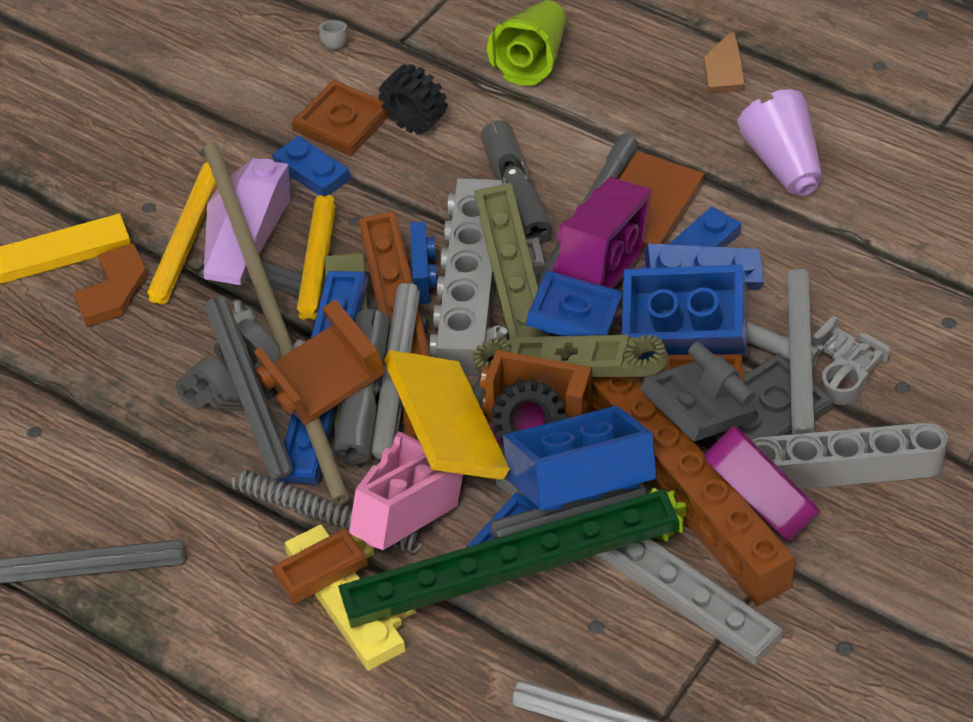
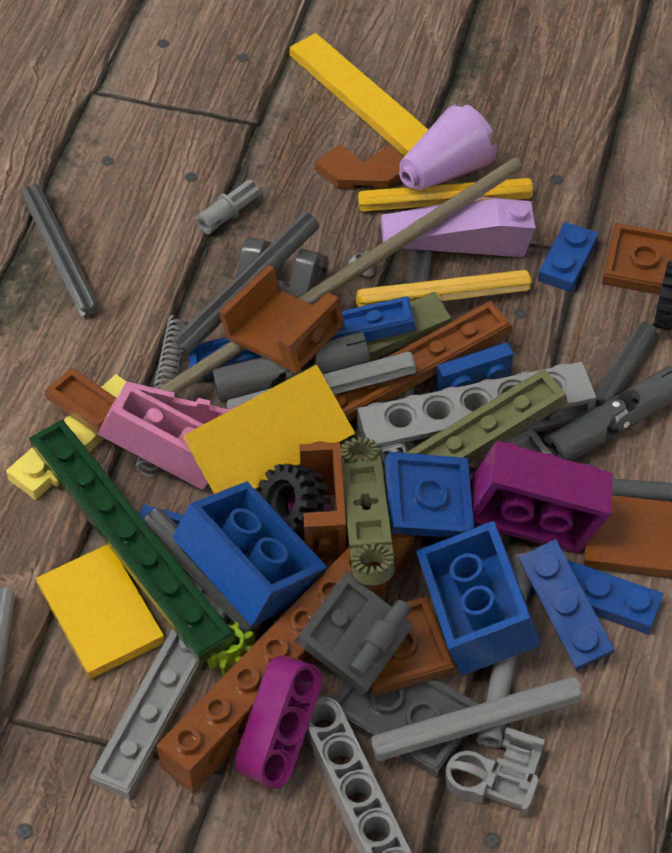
camera: 70 degrees right, 5 degrees up
(104, 404) = (227, 207): none -> light grey axle
(146, 198) = (449, 149): none -> lavender cone
(451, 156) = (626, 363): none -> dark grey axle
(568, 616) = (100, 611): none -> yellow tile

